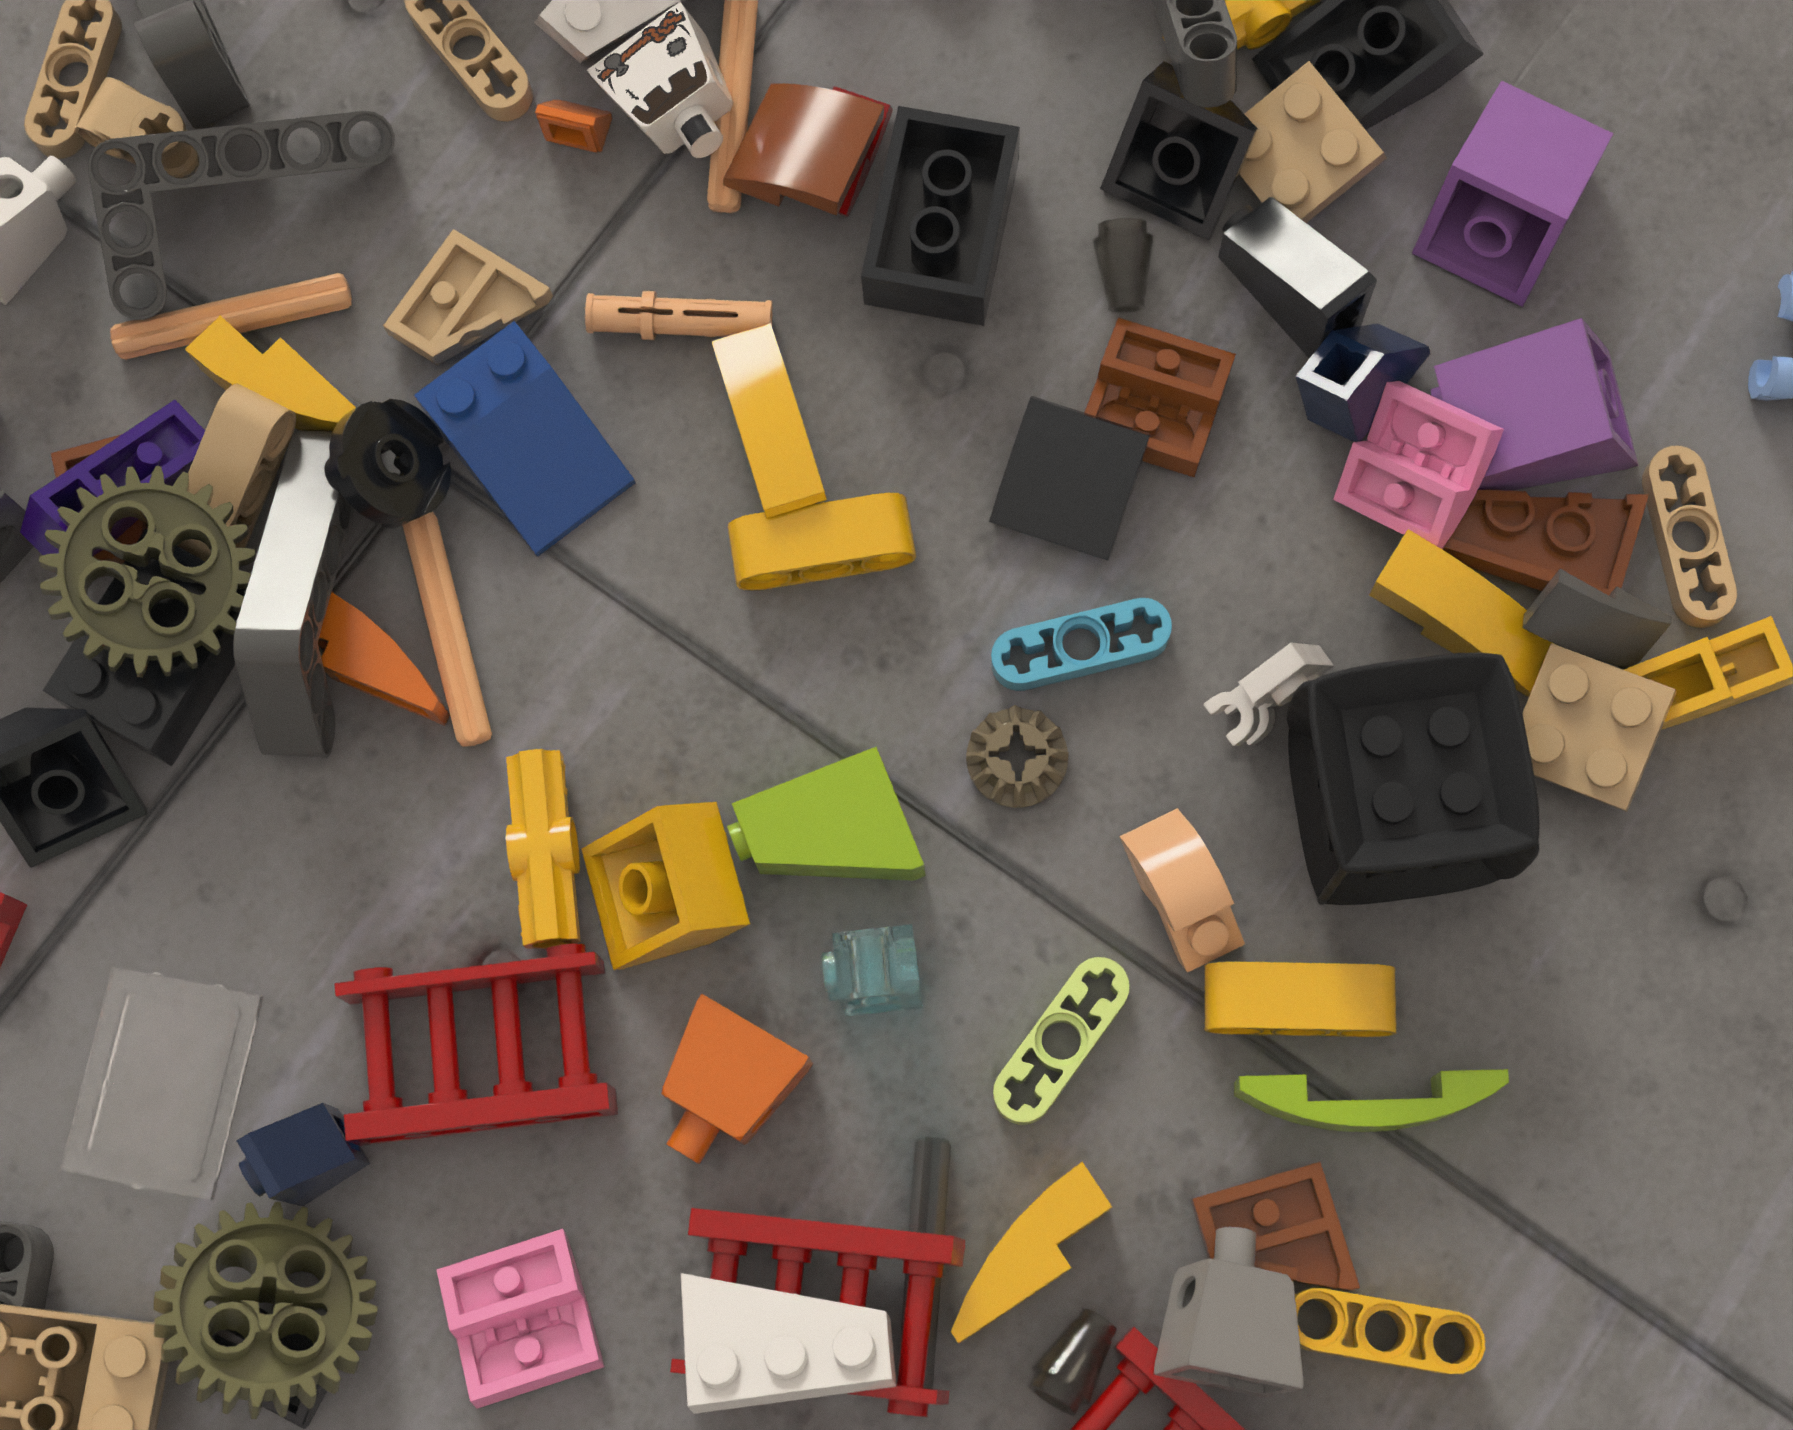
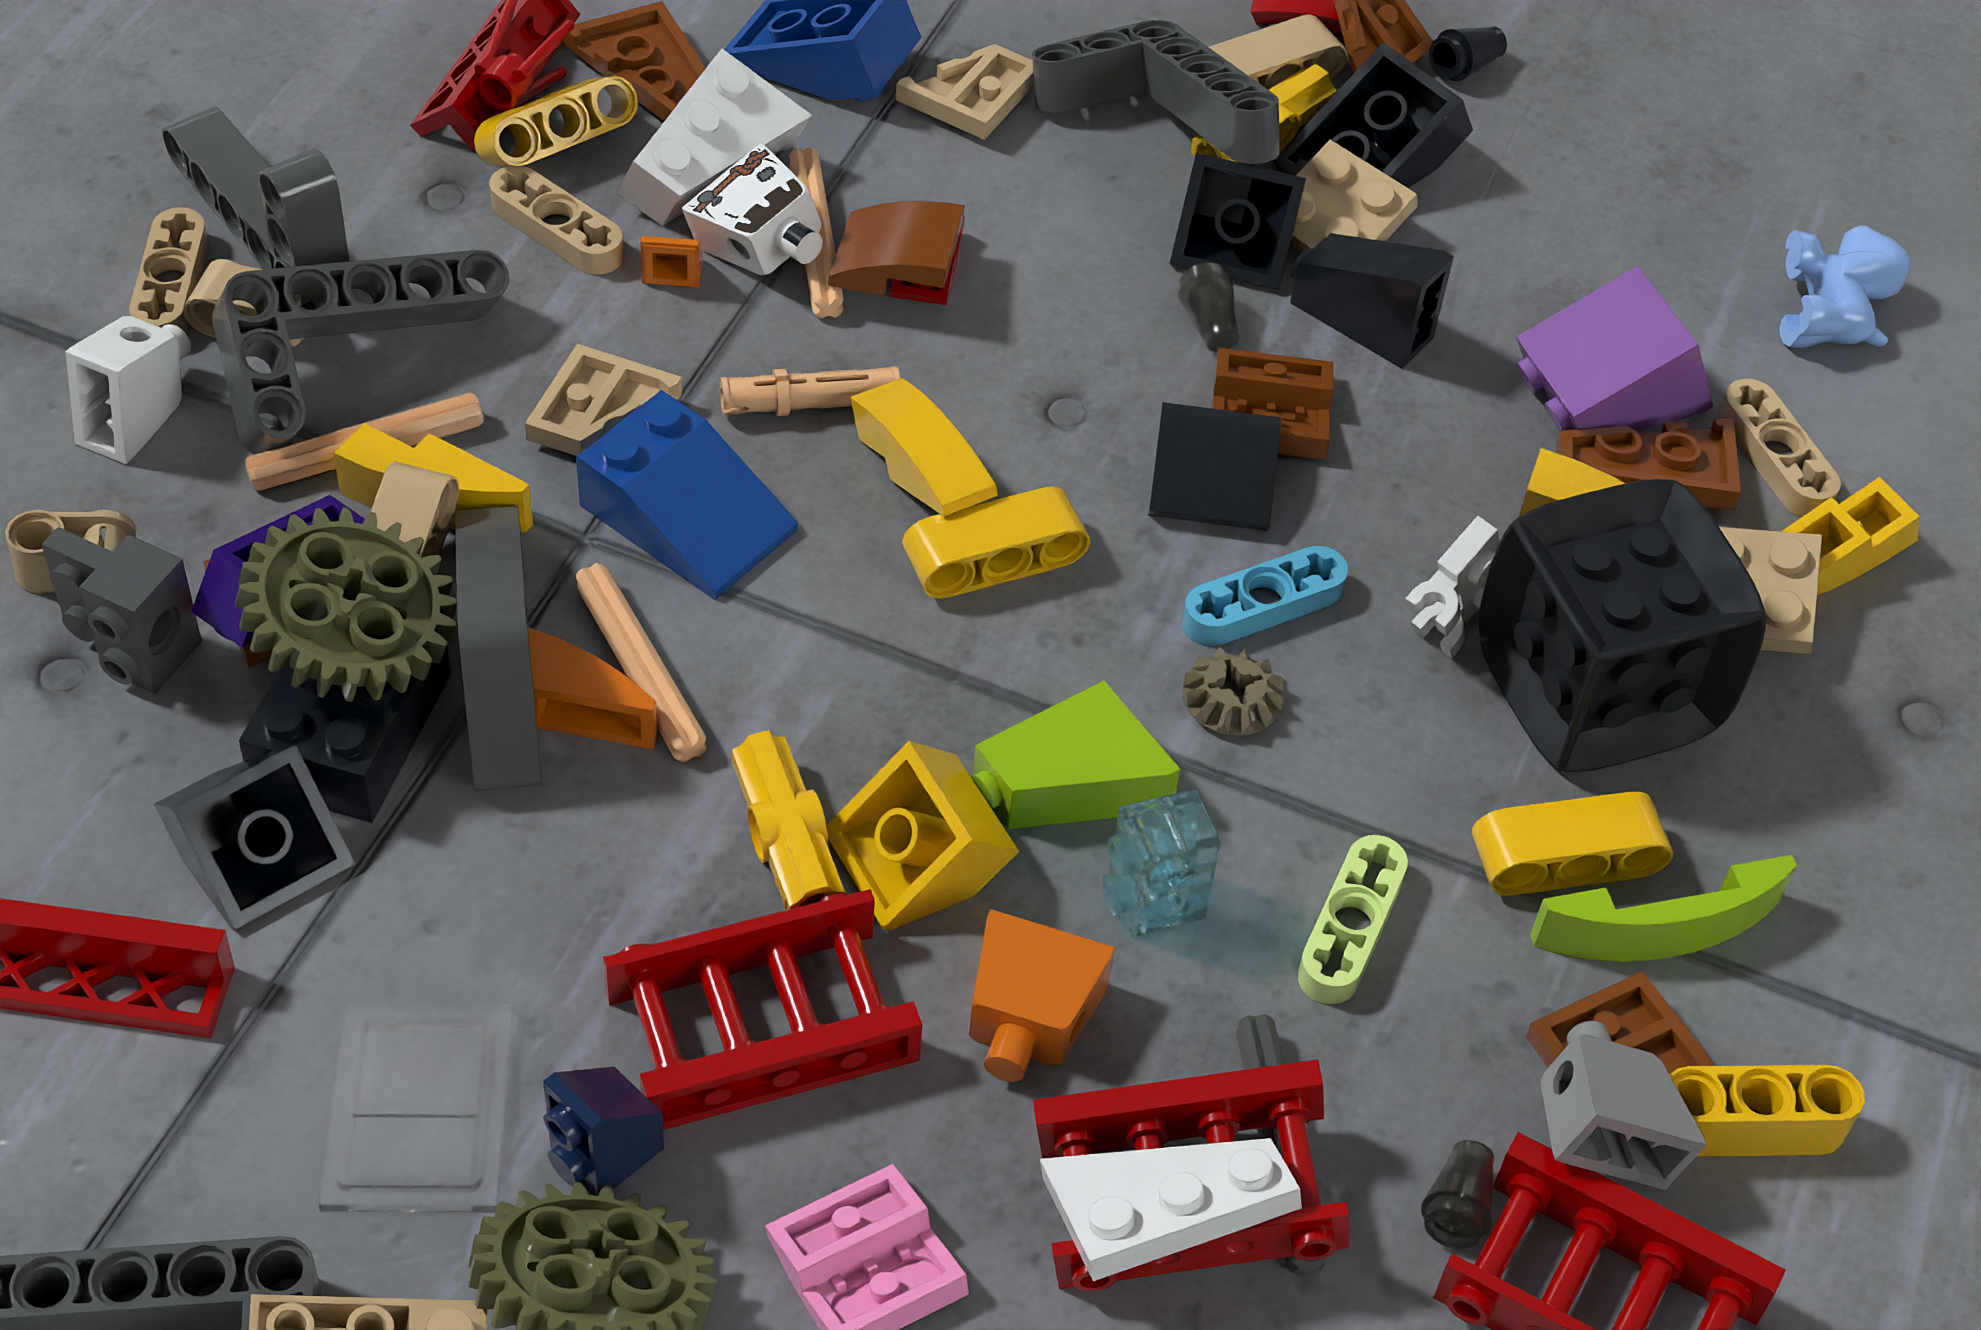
camera: 25 degrees left, 25 degrees down
(365, 482) = (561, 514): black plate -> none
(940, 215) = (1039, 282): black brick -> none
(1029, 1250) = (1390, 1096): yellow slope -> none
(1184, 888) = (1438, 754): light nougat brick -> none
(1349, 374) = (1448, 359): dark blue slope -> none
(1418, 464) = (1527, 405): bright pink slope -> none
(1511, 193) = (1533, 222): medium lavender slope -> none
(1595, 624) = (1735, 499): dark grey slope -> none

